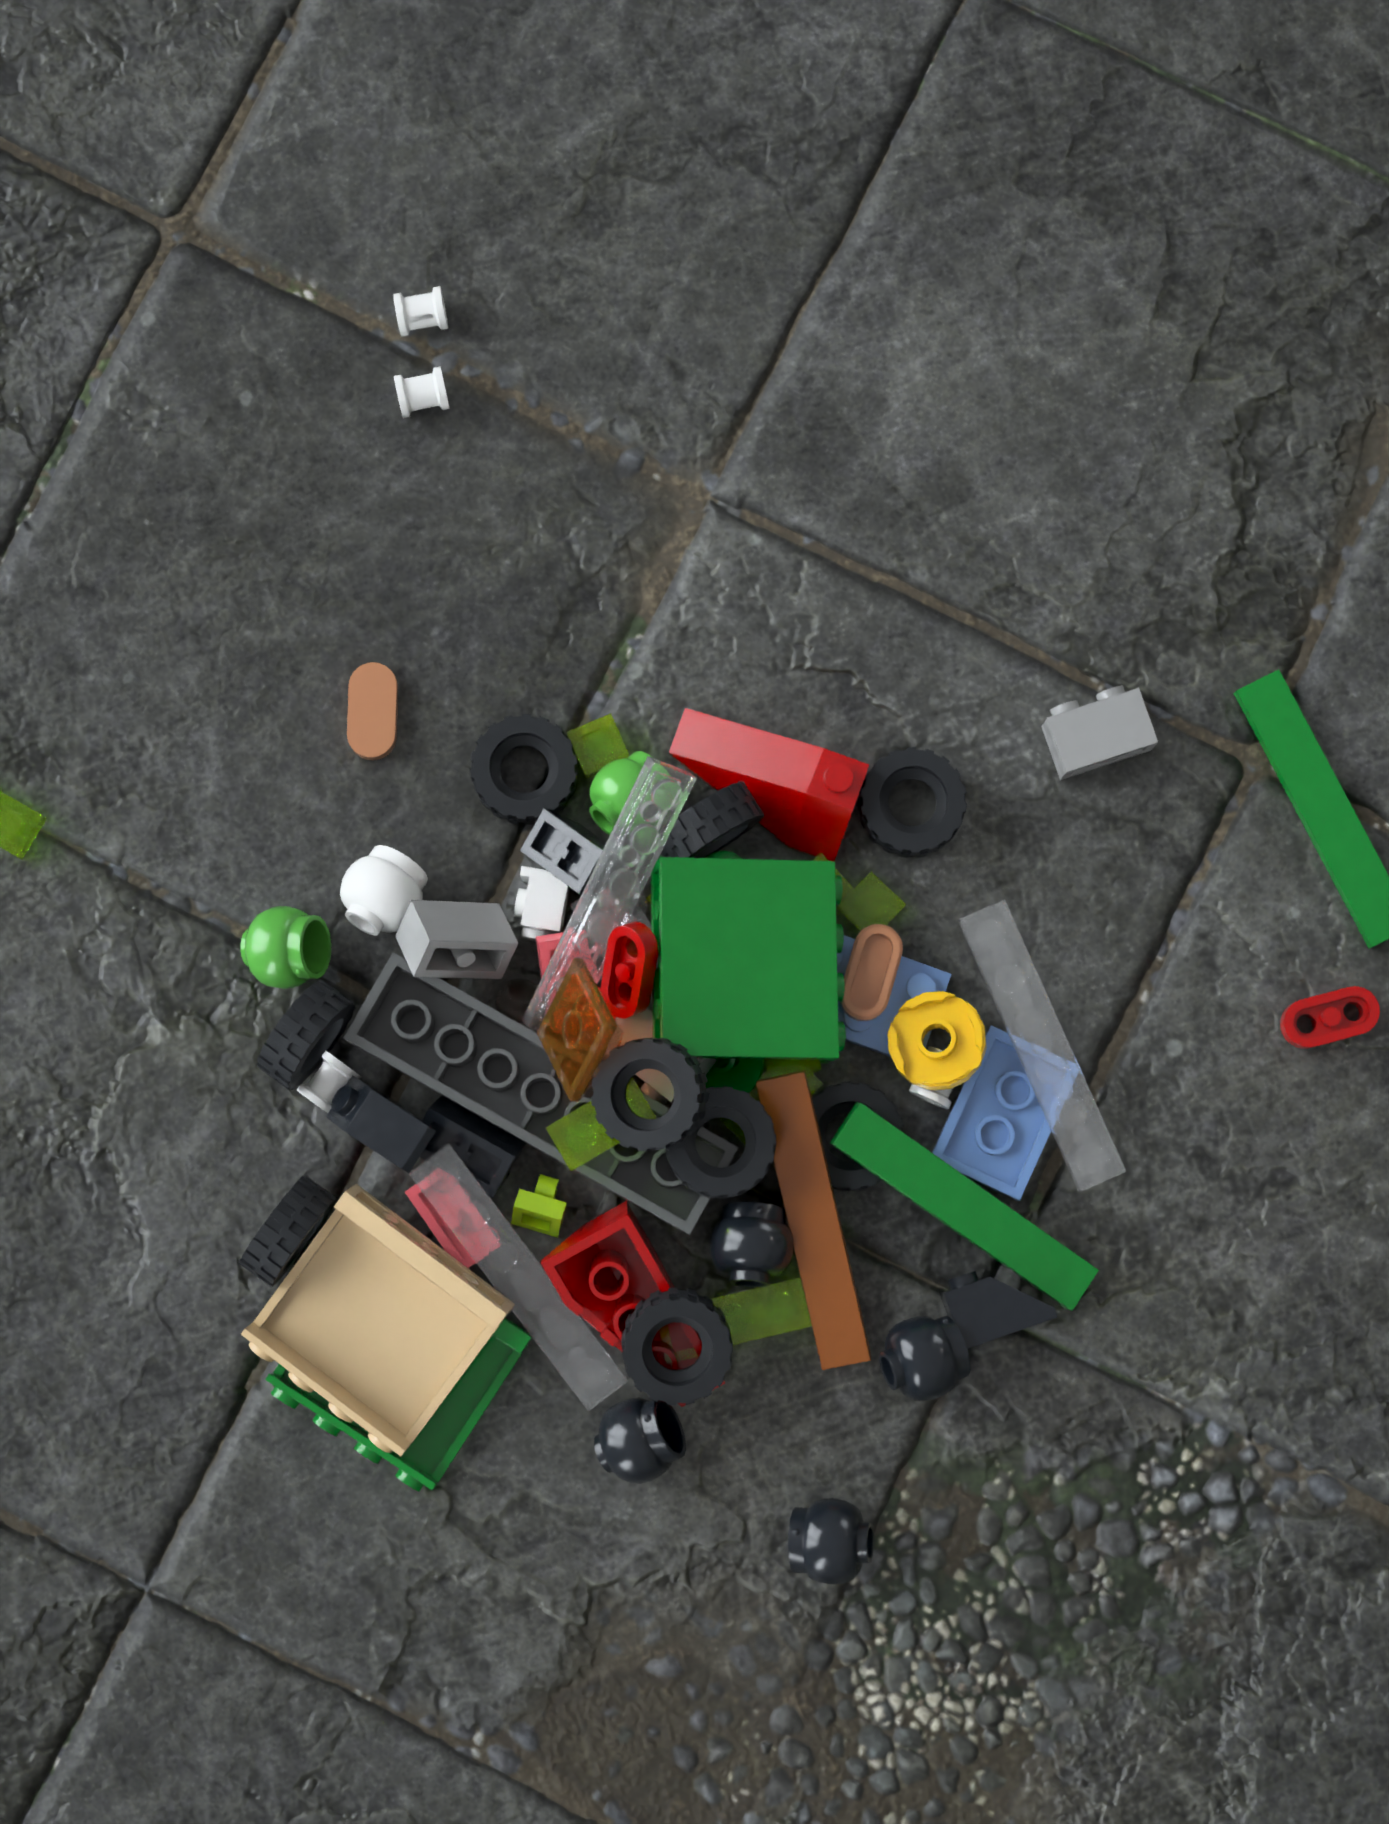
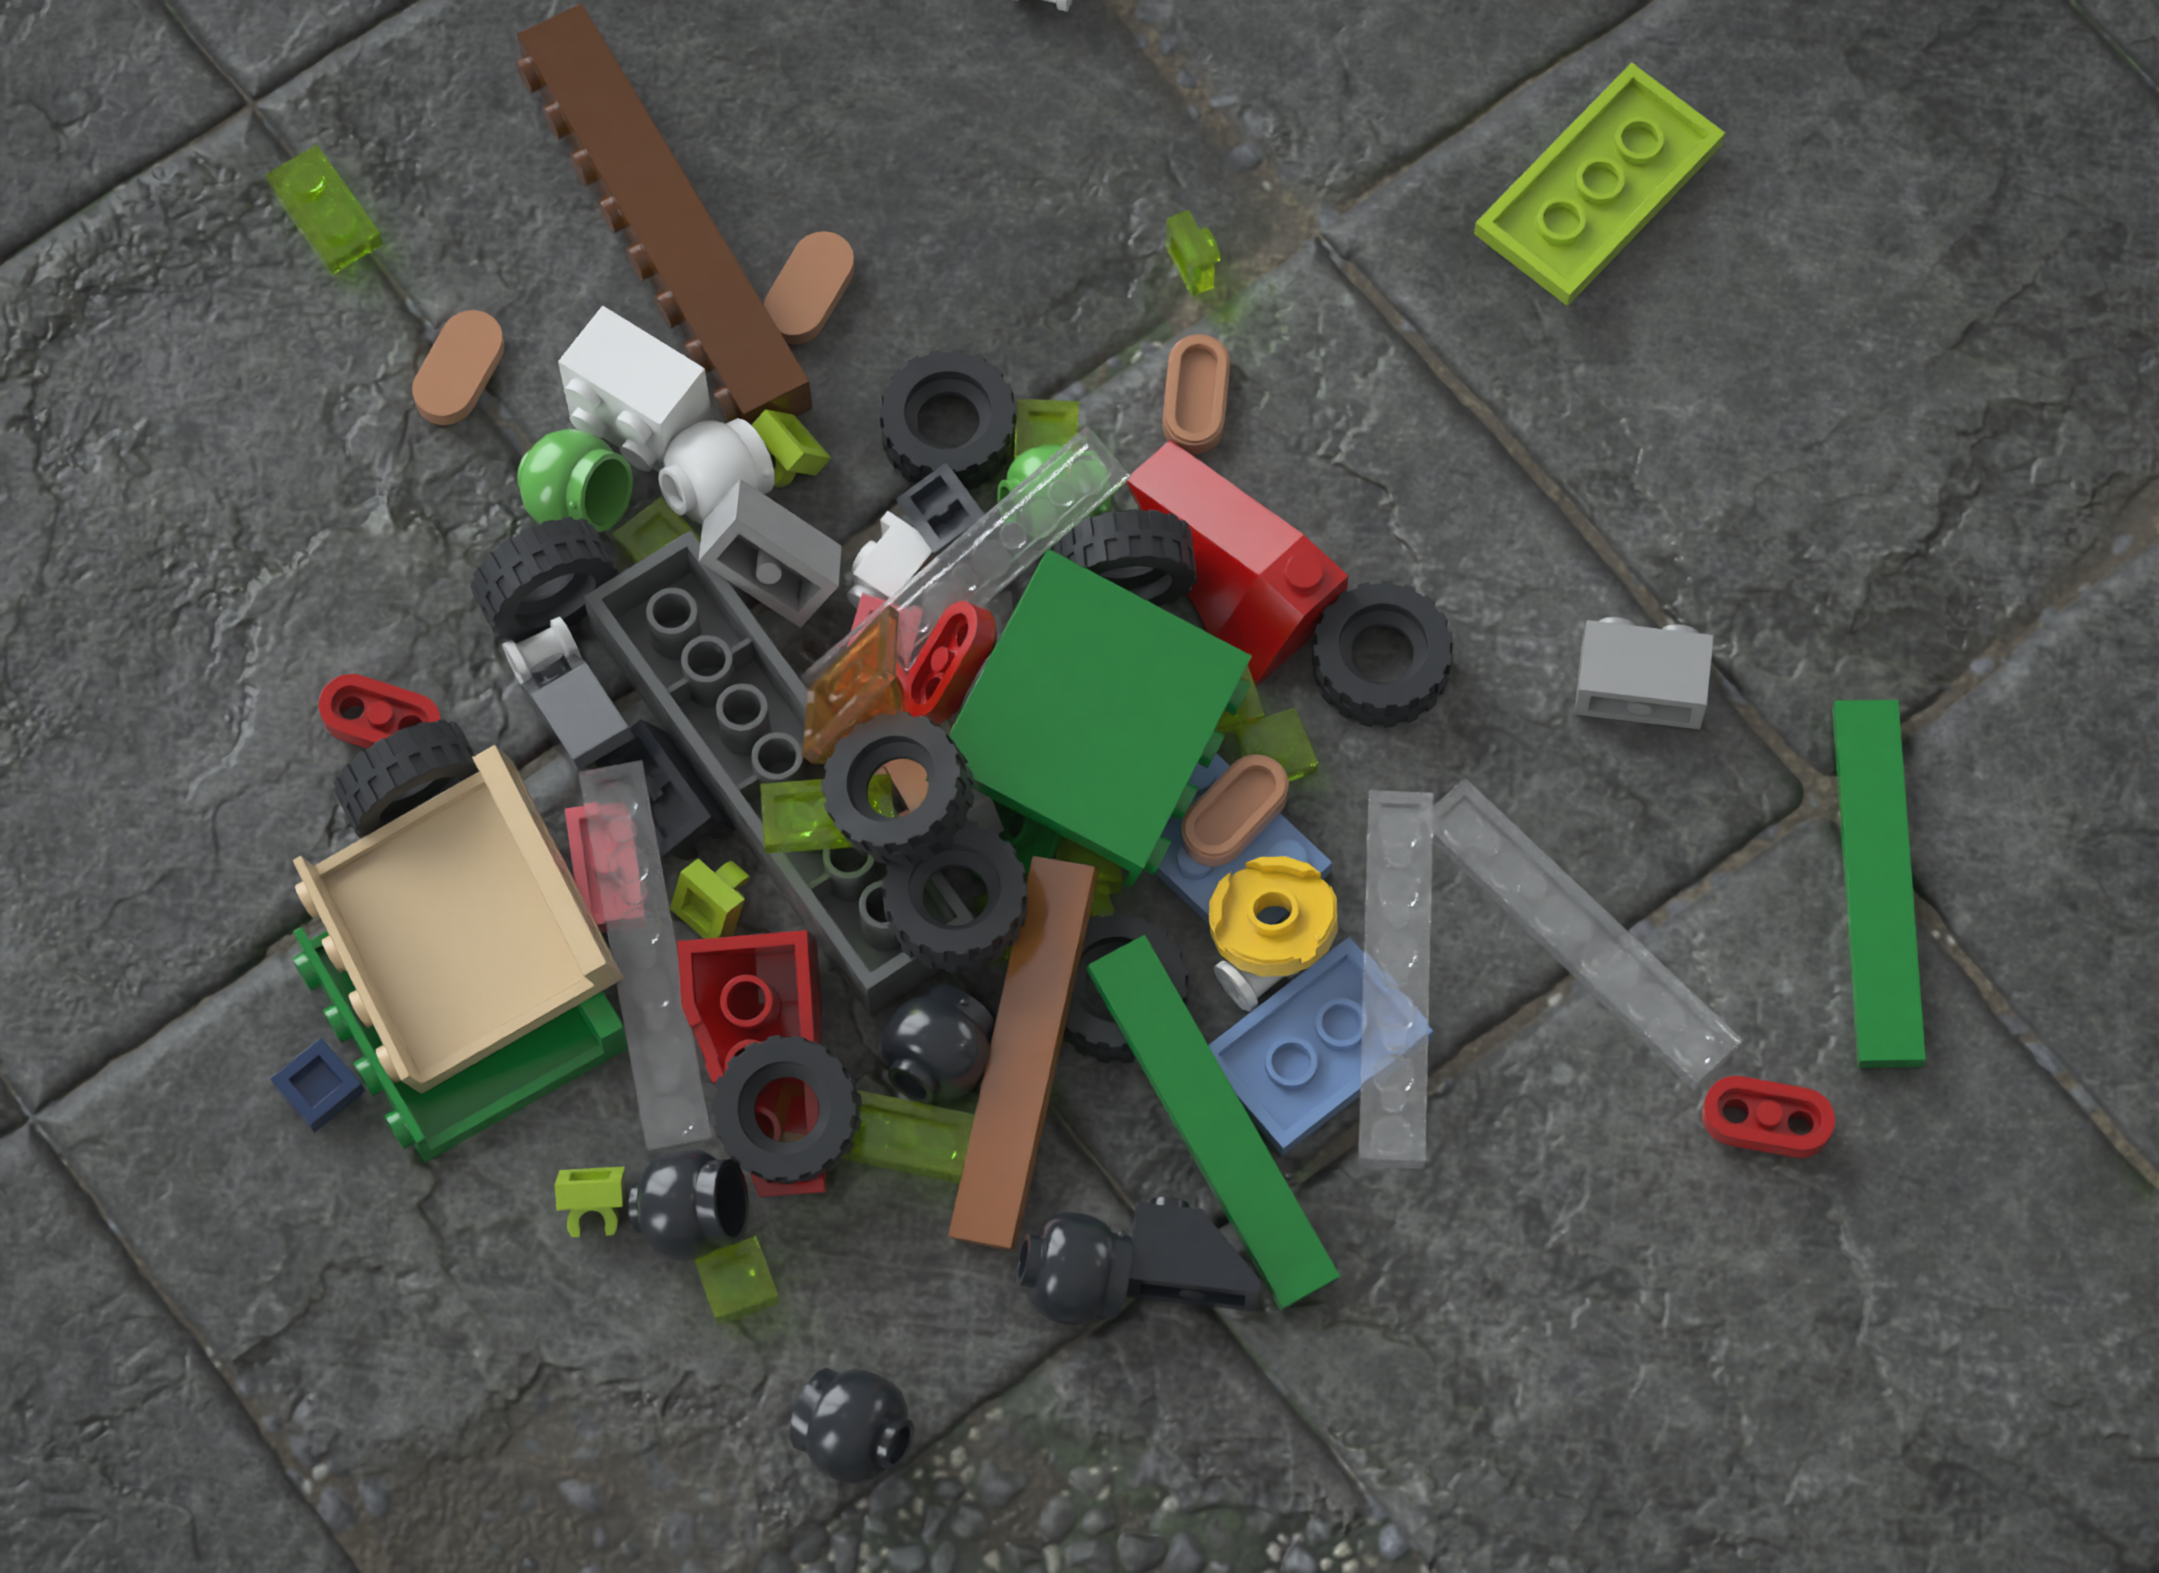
camera: 30 degrees right, 15 degrees down
(152, 890) = (458, 367): none -> nougat tile
(238, 1183) = (384, 706): none -> red plate
(243, 711) = (661, 218): none -> reddish brown brick
(295, 861) = (632, 389): none -> white brick
(335, 1473) = (317, 1085): none -> dark blue plate
(363, 956) = (650, 531): none -> clear neon green plate
(422, 841) = (790, 445): none -> lime tile
(564, 1459) = (591, 1191): none -> lime tile
(634, 558) = (1192, 251): none -> clear neon green plate
(686, 663) = (1196, 393): none -> nougat tile
(696, 1473) = (736, 1280): none -> clear neon green plate
(894, 370) = (1599, 184): none -> lime plate
(1145, 946) = (1582, 935): none -> clear plate

